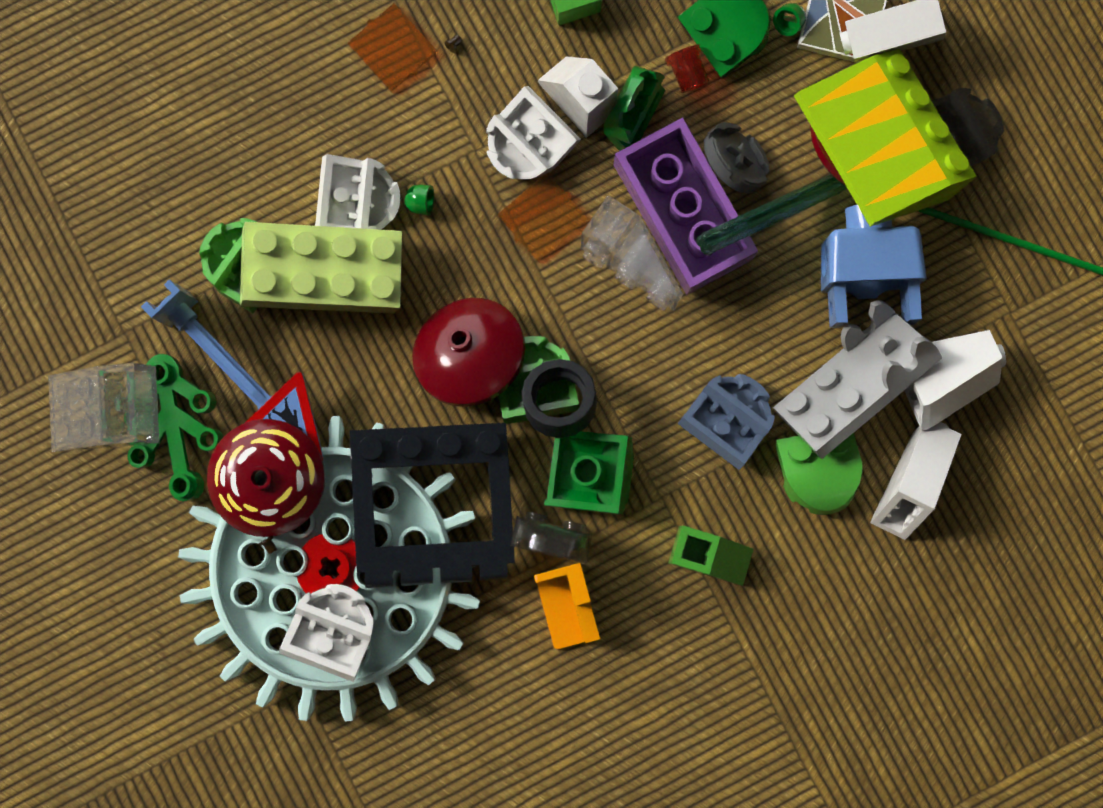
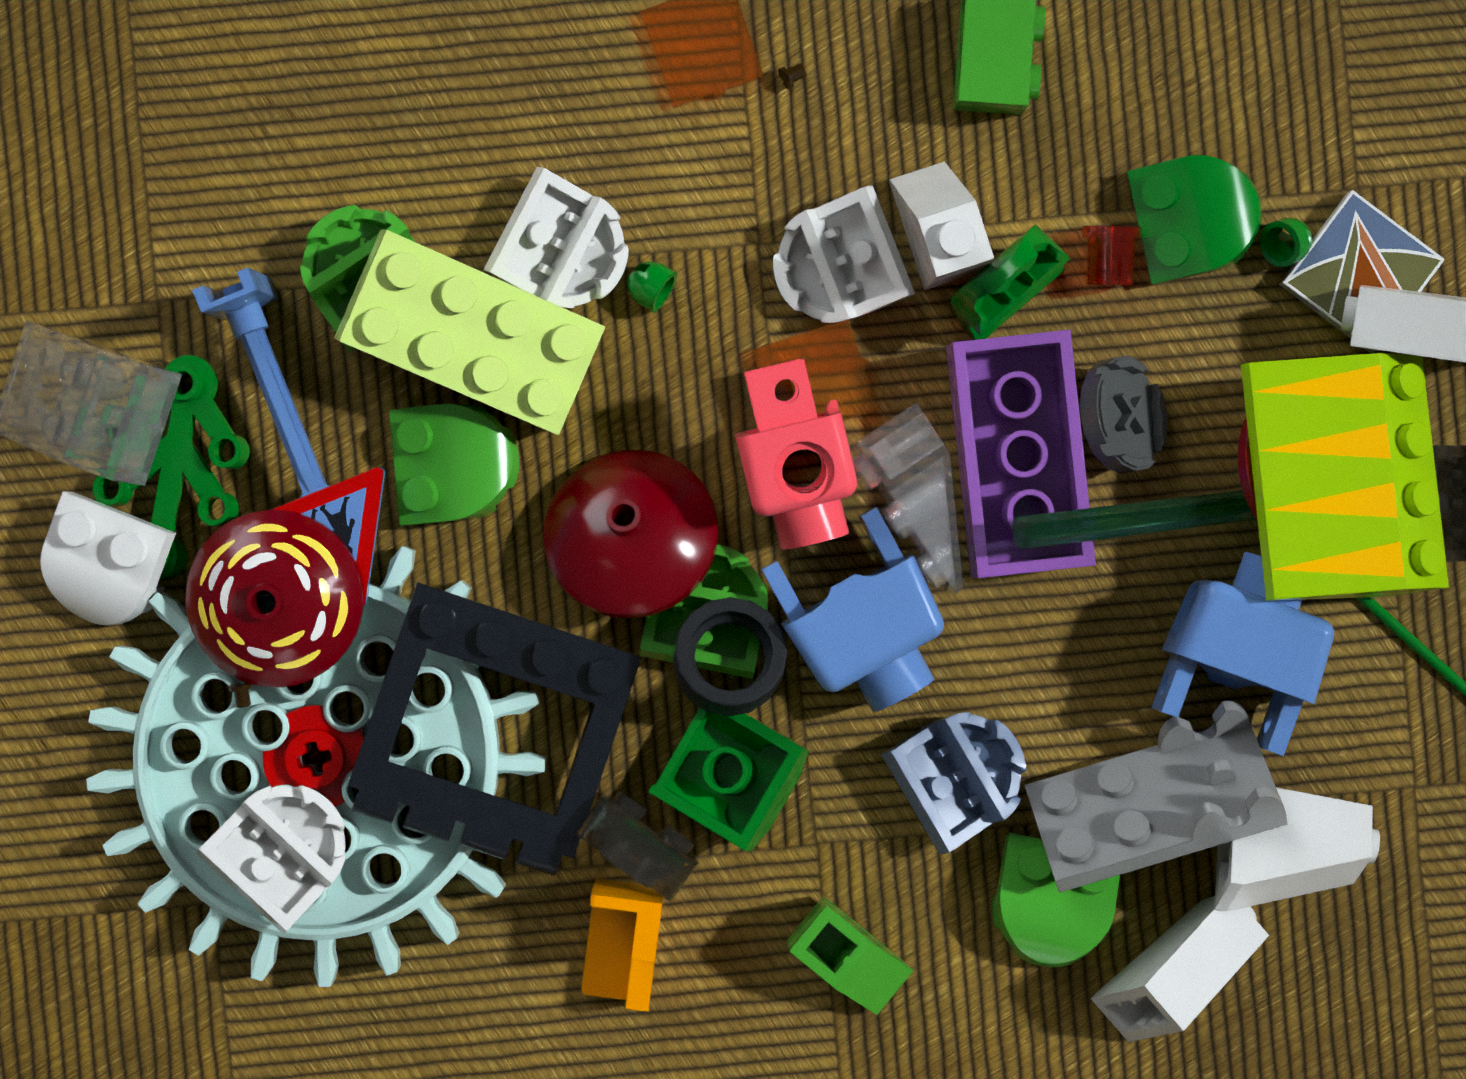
camera: 25 degrees right, 5 degrees up
(152, 501) = (103, 560): none -> white slope
(341, 355) = (450, 462): none -> bright green slope
(535, 246) = (806, 512): none -> coral piece
(633, 344) = (866, 624): none -> medium blue piece

